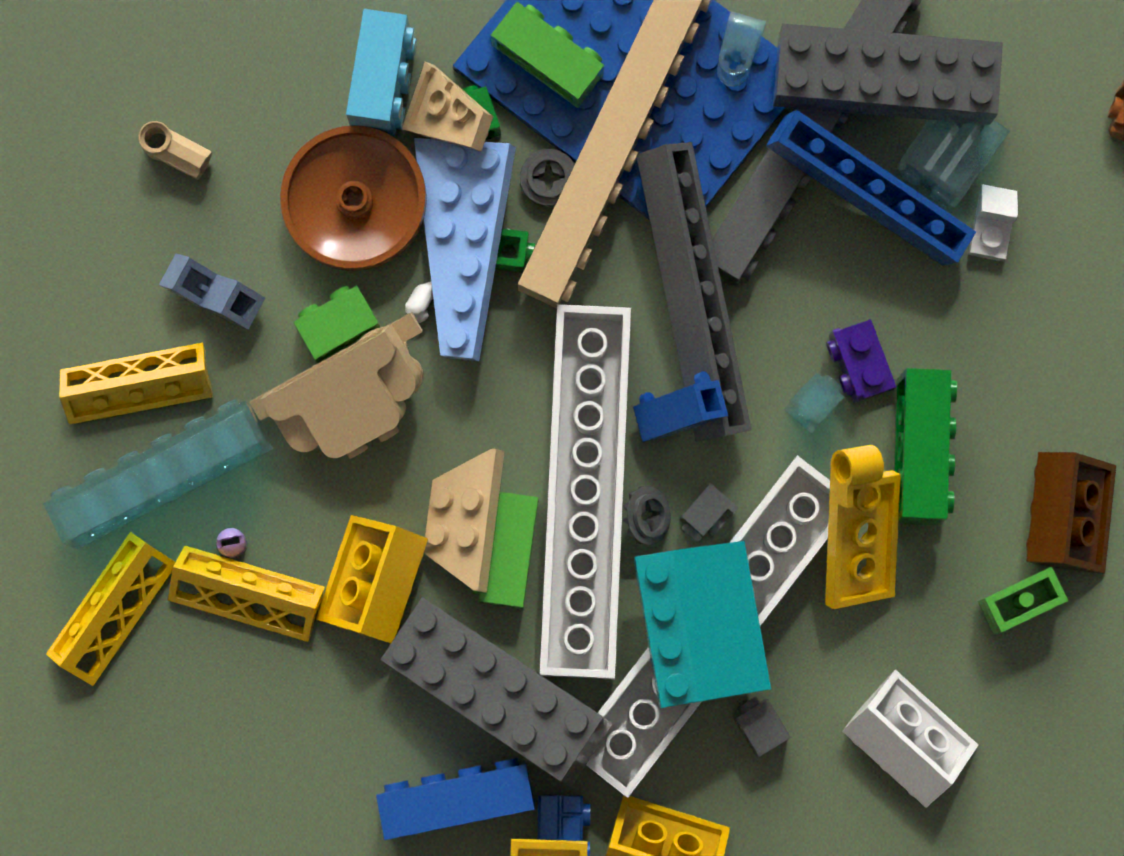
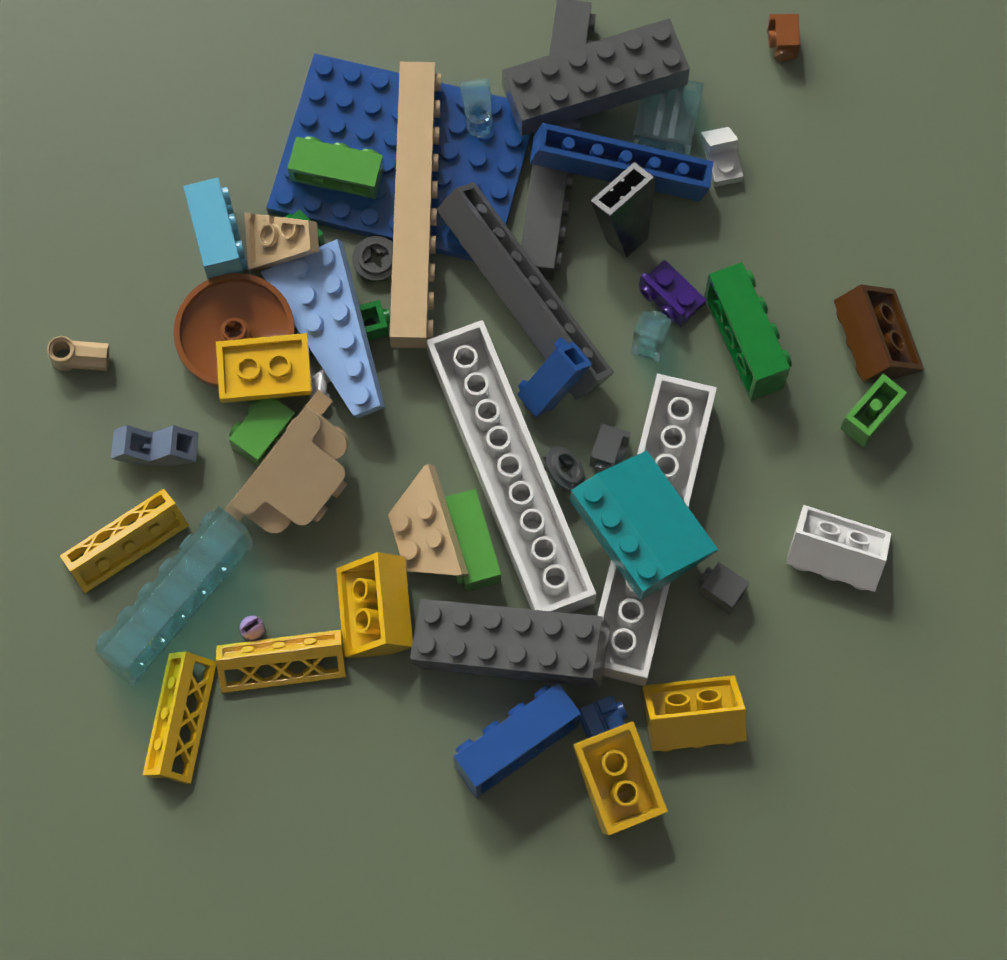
camera: 25 degrees left, 10 degrees down
(364, 258) = (263, 368): none -> yellow plate
(851, 246) = (626, 209): none -> black slope
(861, 496) = (718, 381): yellow hinge -> none

